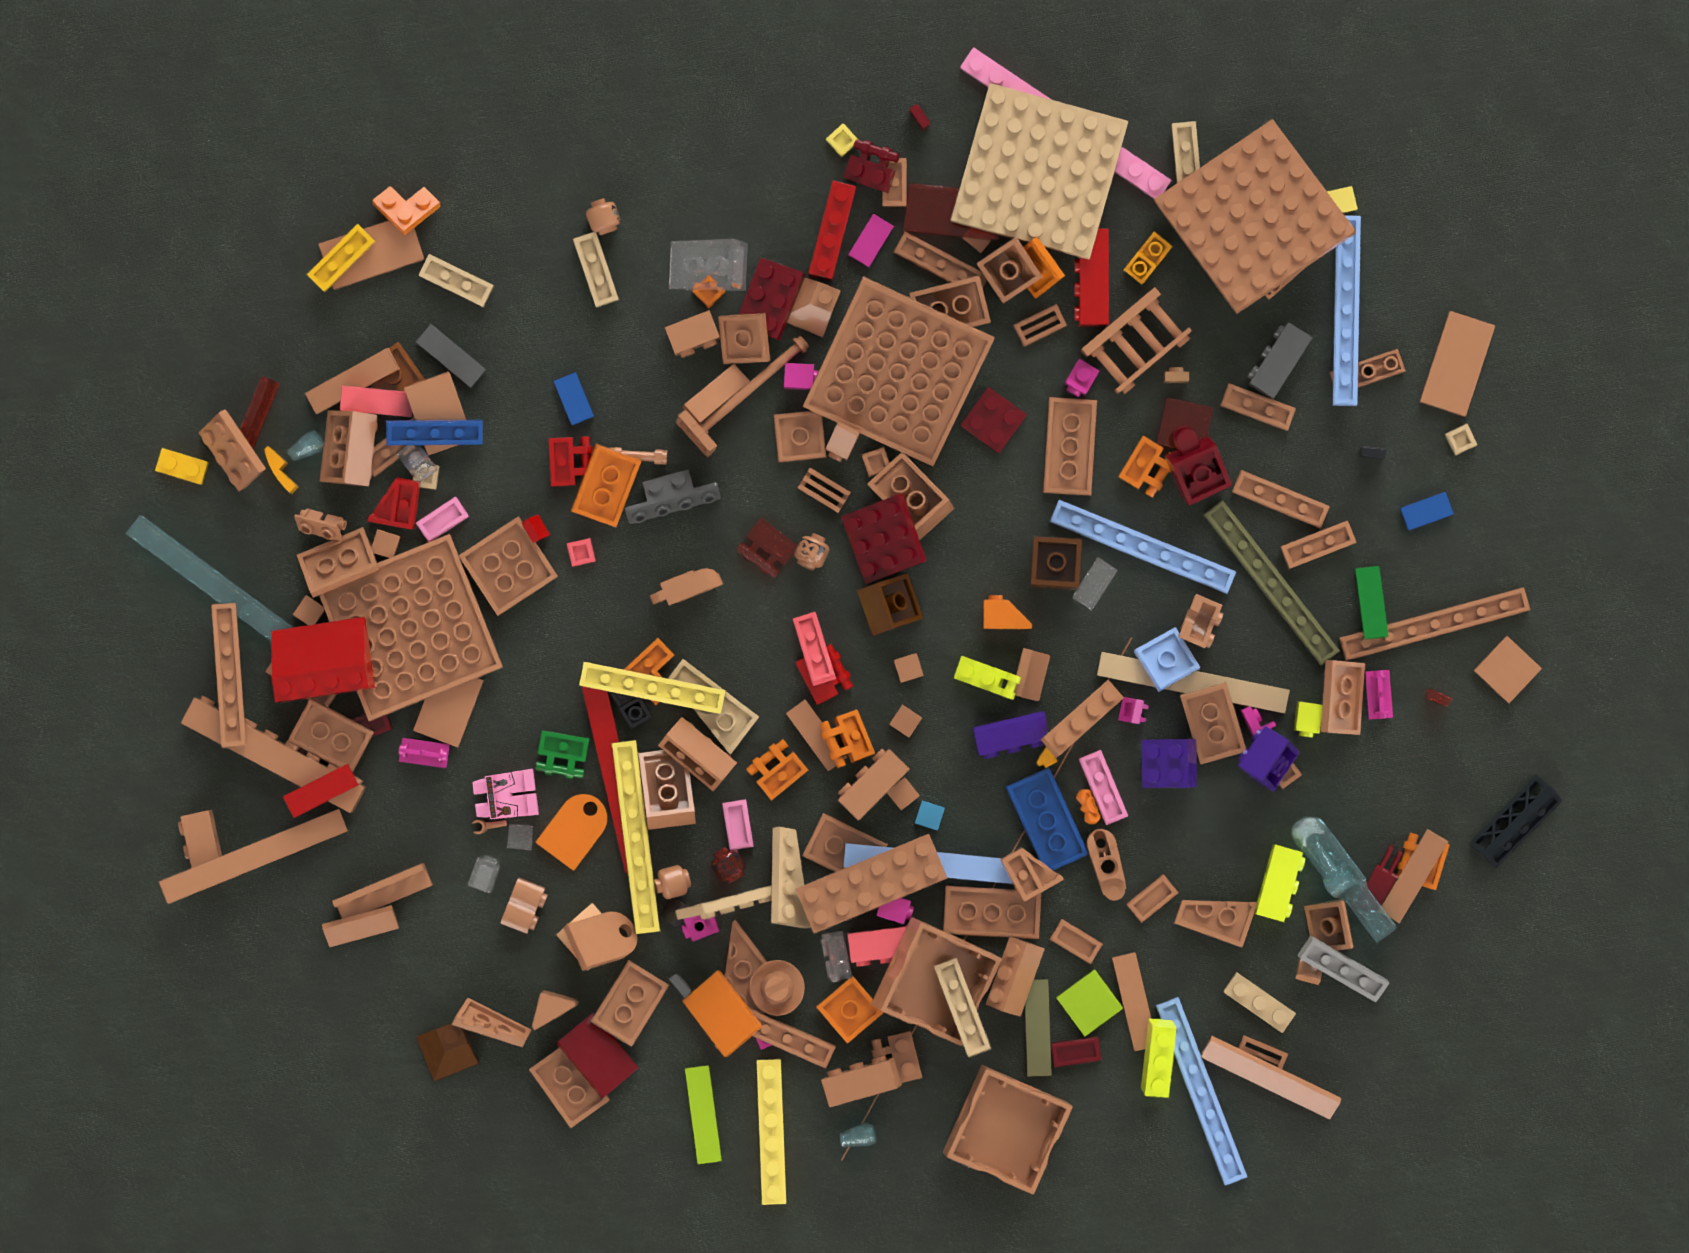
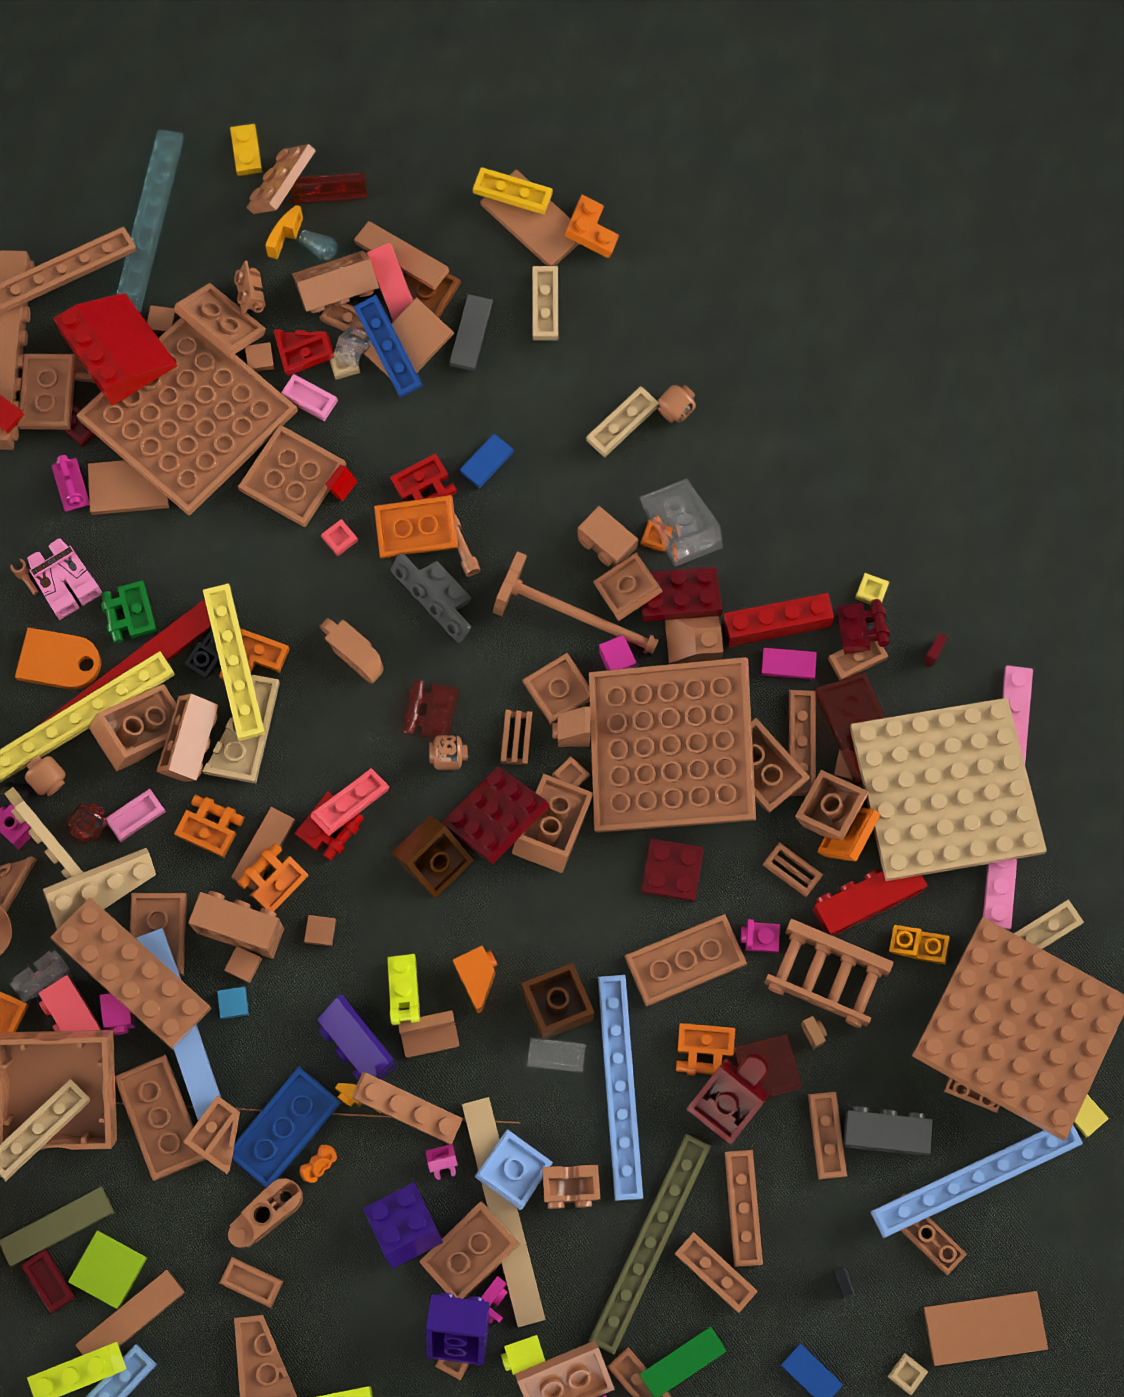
camera: 65 degrees right, 15 degrees down
(520, 836) = (27, 612): clear tile -> none
(716, 394) = (557, 584): nougat tile -> none
(908, 667) = (376, 907): nougat tile -> none
(1015, 976) = (99, 1173): nougat brick -> none
(1076, 941) = (168, 1222): nougat tile -> none
(1103, 787) = (346, 1170): bright pink tile -> none

